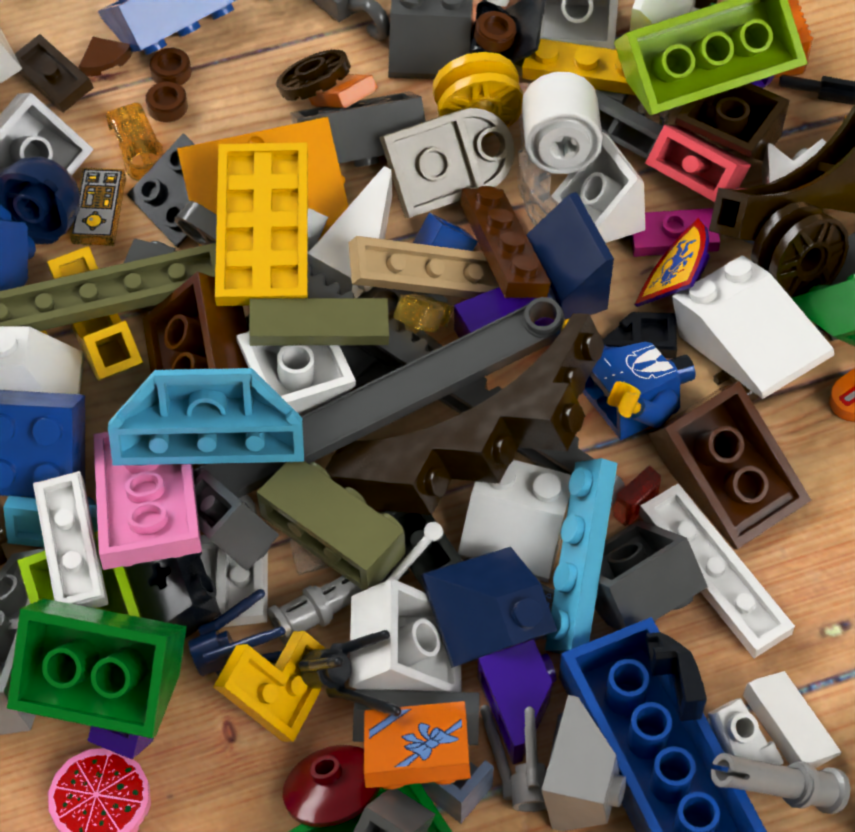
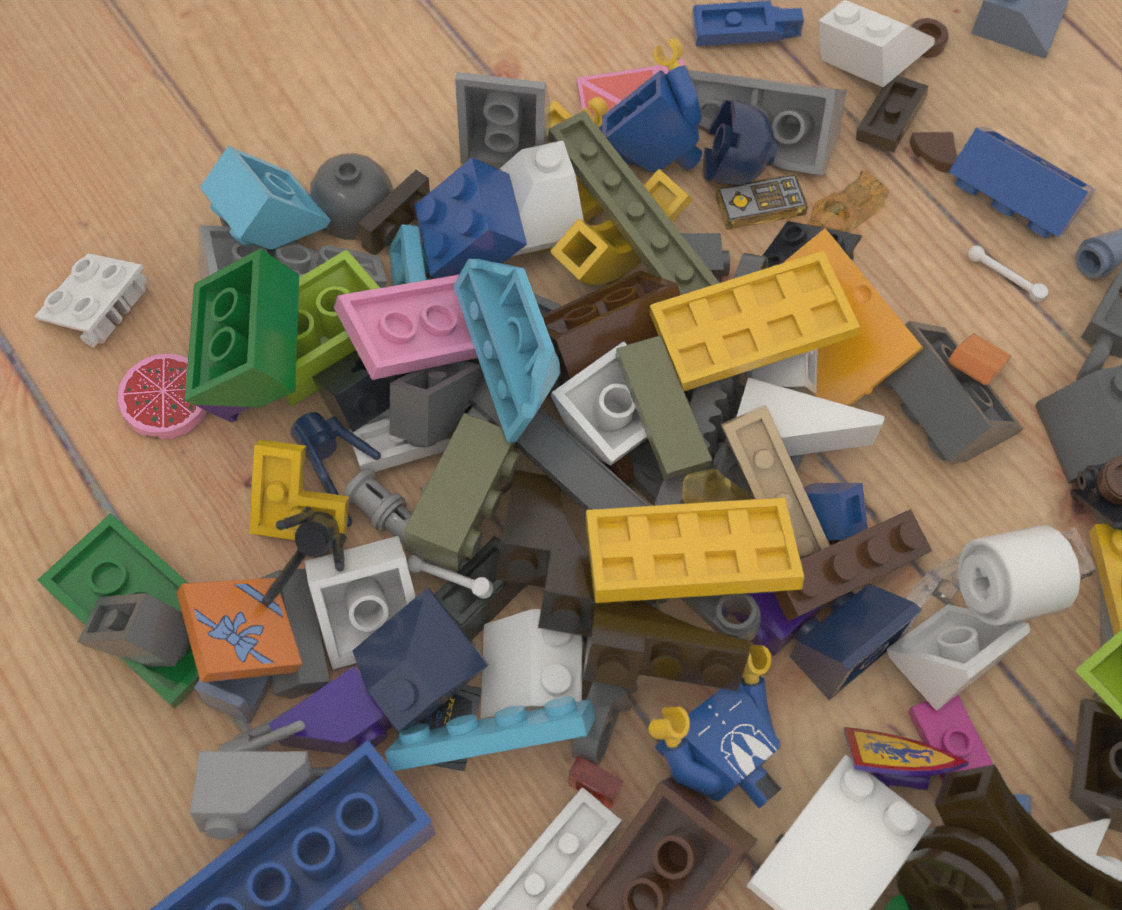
camera: 70 degrees right, 5 degrees up
(70, 541) = (395, 264): white tile -> none
(166, 101) = (907, 218): reddish brown tile -> none
(170, 66) = (950, 208): reddish brown tile -> none
(282, 37) = (1037, 292): none -> white hinge
(313, 74) = (992, 329): dark brown wheel -> none
(328, 787) = (202, 562): dark red dish -> none
(445, 155) = (939, 479): plate -> none
(478, 330) = (692, 550): none -> yellow plate
(479, 82) = (1030, 485): yellow wheel -> none
(627, 126) = (1068, 644): dark grey piece -> none
(646, 327) = (803, 743): black tile -> none
(646, 575) = (498, 806): dark grey slope -> none
(673, 658) = (355, 867): black slope -> none
(696, 162) = (1042, 745): coral brick -> none

